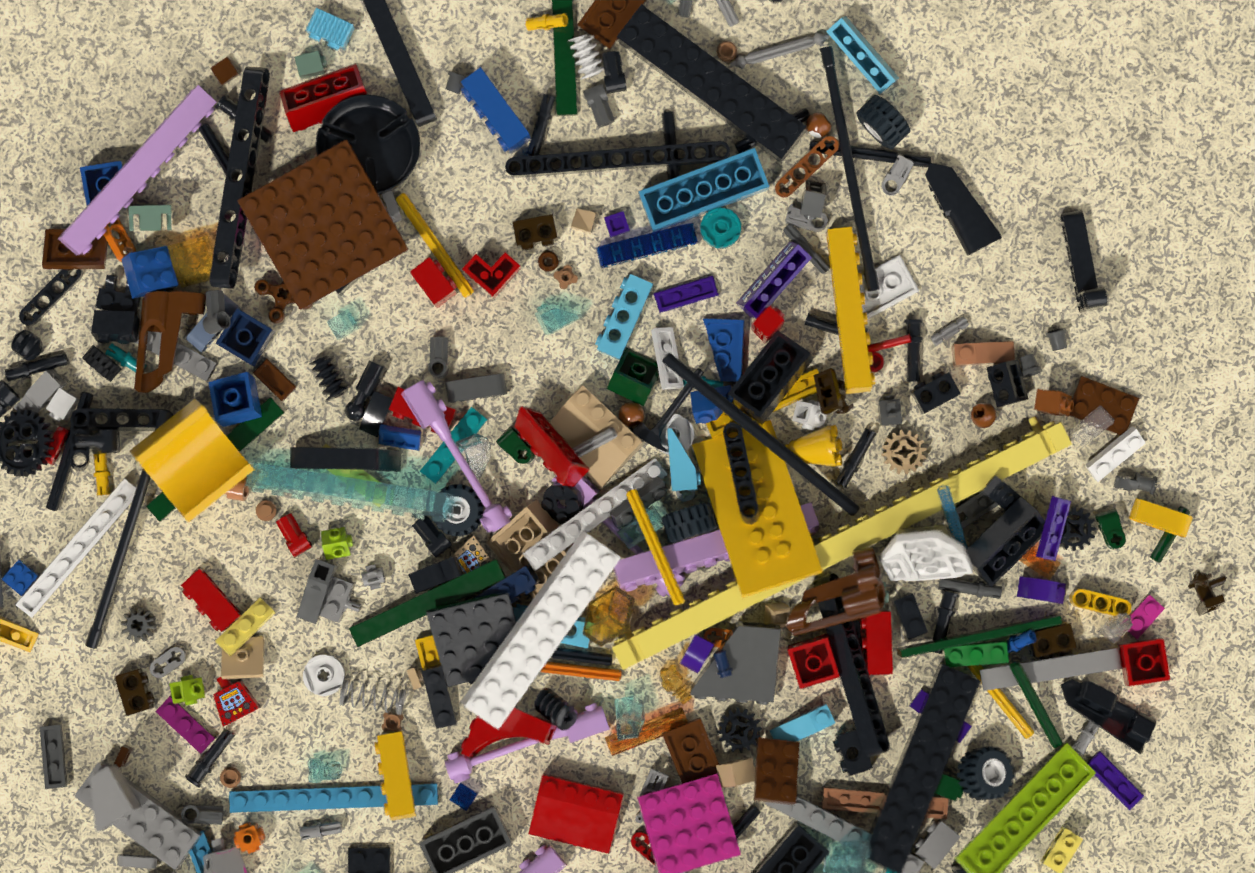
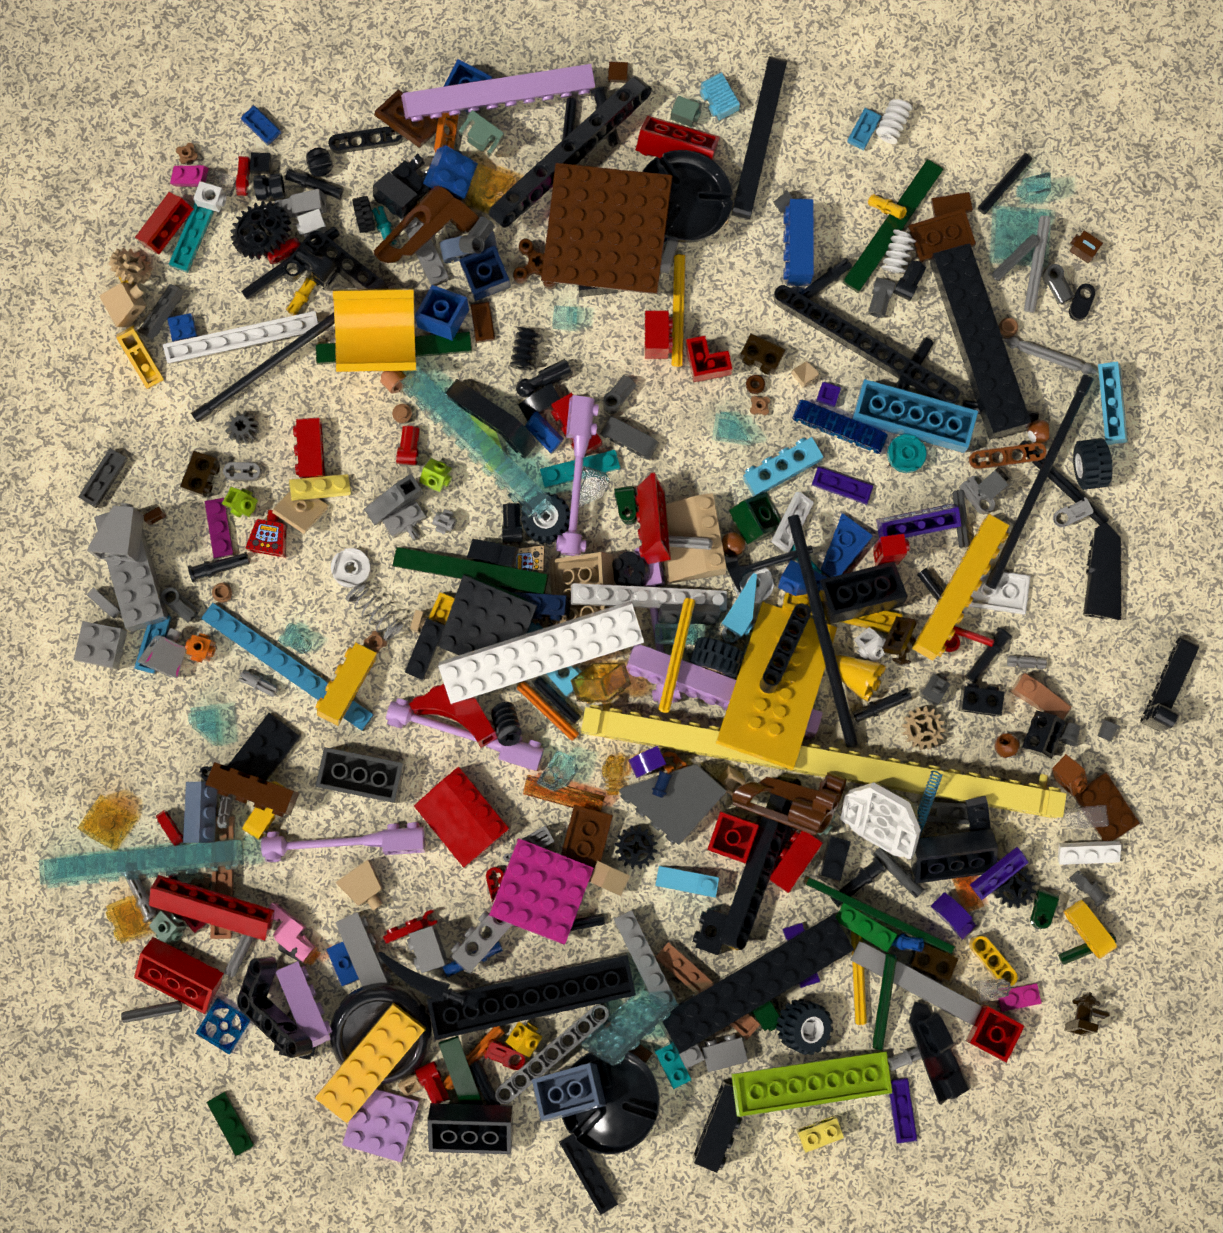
camera: 35 degrees right, 5 degrees down
(463, 796) = (386, 739): clear blue plate -> none
(776, 771) = (641, 900): reddish brown plate -> none

